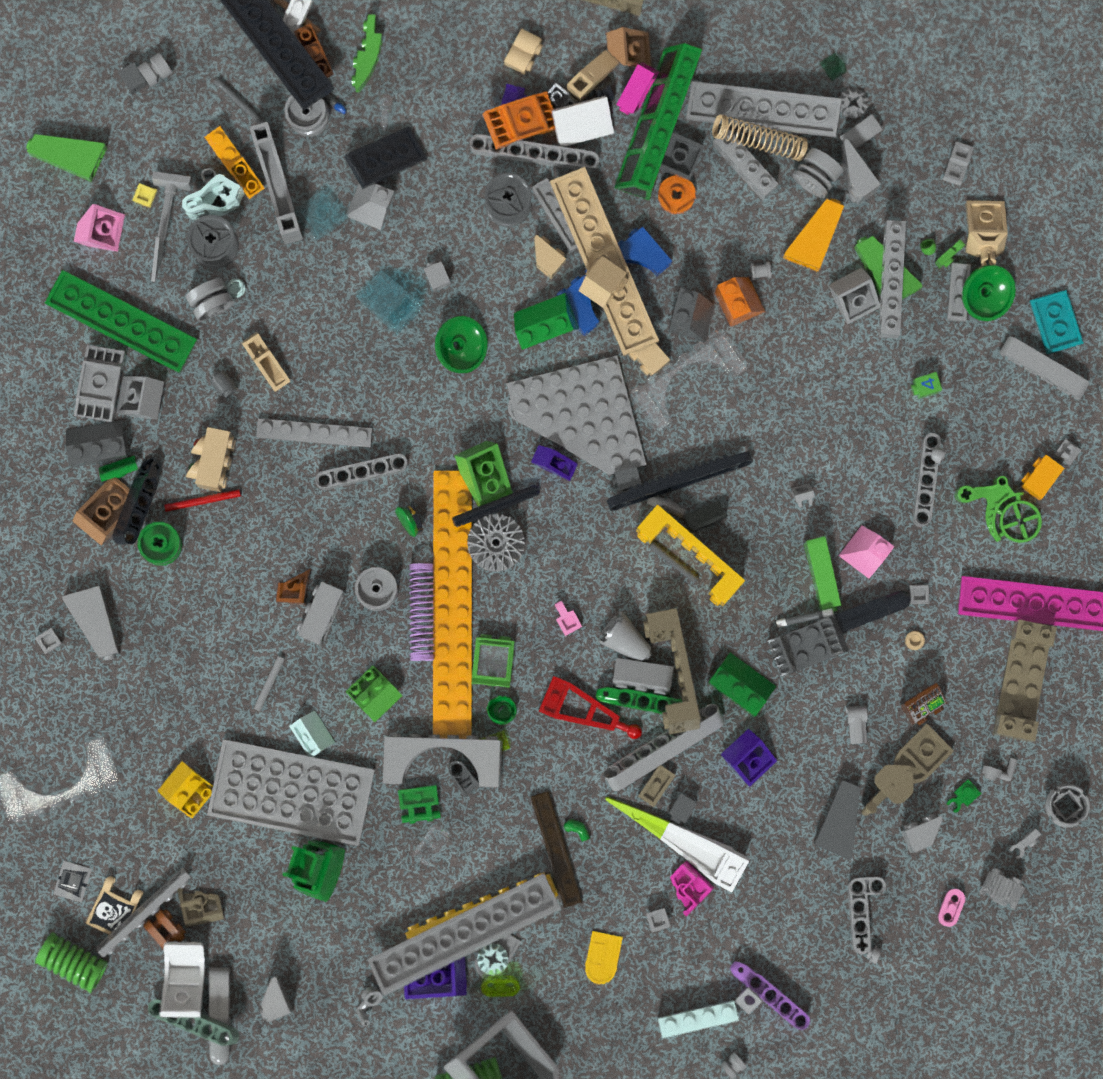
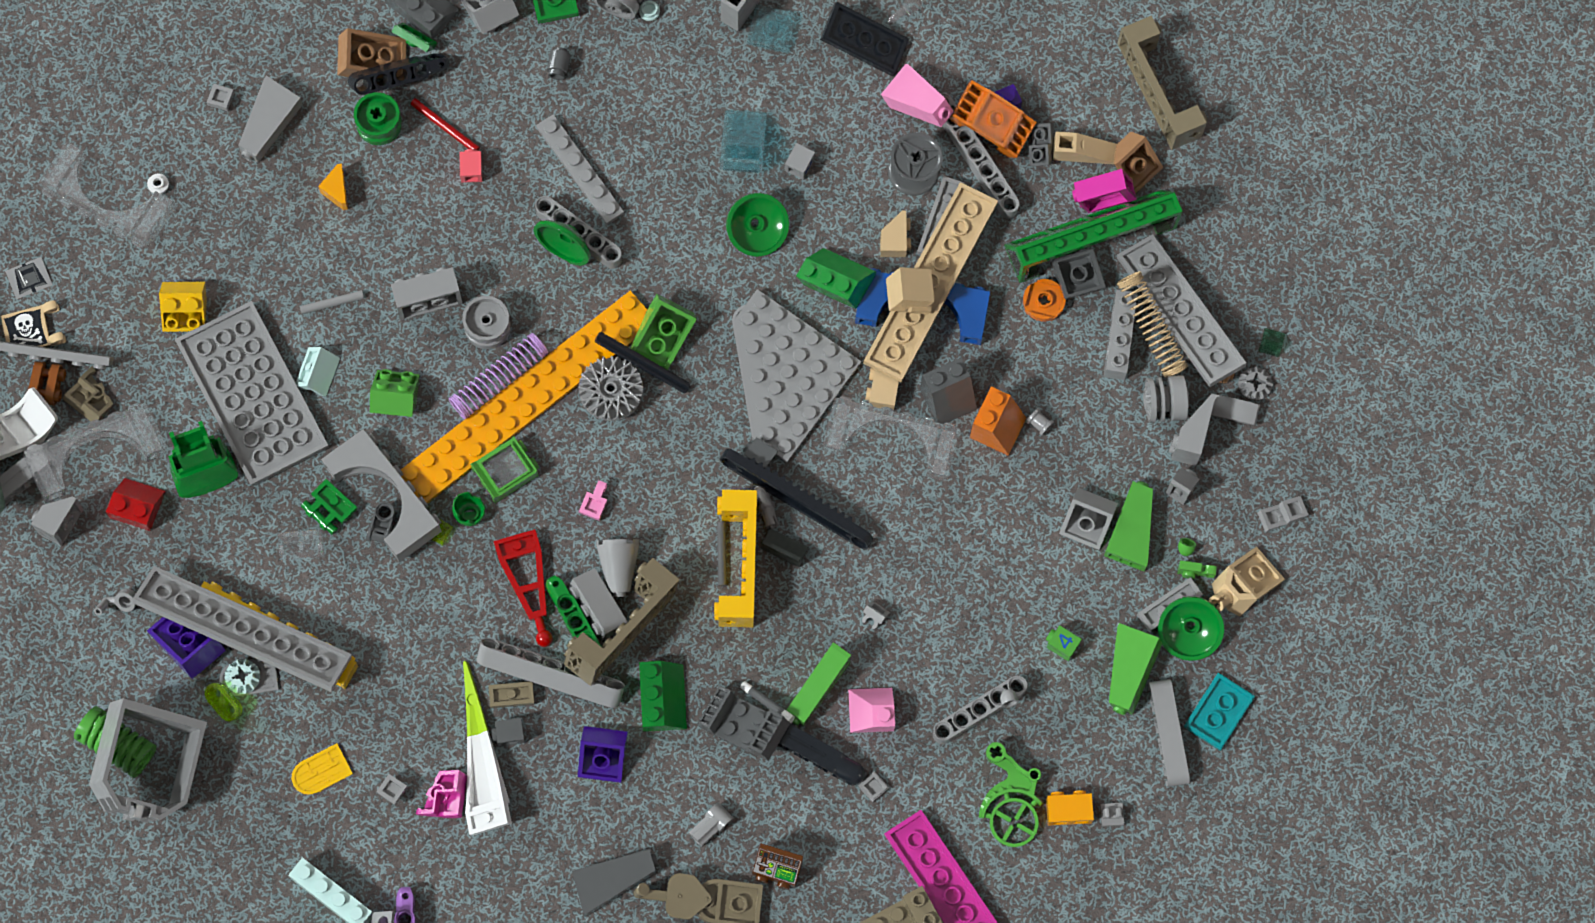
camera: 50 degrees right, 10 degrees down
(84, 736) = (161, 188): none -> white plate
(185, 614) = (334, 187): none -> light orange slope
(214, 459) = (485, 104): tan piece -> none
(248, 894) = (130, 426): none -> clear arch
(249, 506) = (471, 166): none -> coral brick
(265, 361) = (606, 82): tan slope -> none
(294, 590) = (430, 259): dark orange slope -> none
(305, 935) = (135, 504): none -> red slope
(363, 488) = (562, 241): none -> green dish
(371, 205) = (814, 62): light grey slope -> none
(409, 519) = (571, 301): green piece -> none
(462, 158) = (916, 97): none -> bright pink slope
(523, 52) = (1054, 79): tan brick -> none
(554, 462) = (722, 383): dark purple slope -> none
(556, 849) = (384, 654): dark brown tile -> none
(577, 826) = (419, 656): green arm -> none
(582, 121) = (1037, 171): white tile -> none
(604, 91) = (1077, 171): black wheel -> none
(814, 239) = (1109, 444): light orange slope -> none
(884, 211) = (1182, 485): none -> light grey slope
(892, 279) = (1127, 533): light grey brick -> none
(914, 640) = (829, 816): tan tile -> none
(979, 351) = (1132, 665): none -> bright green slope

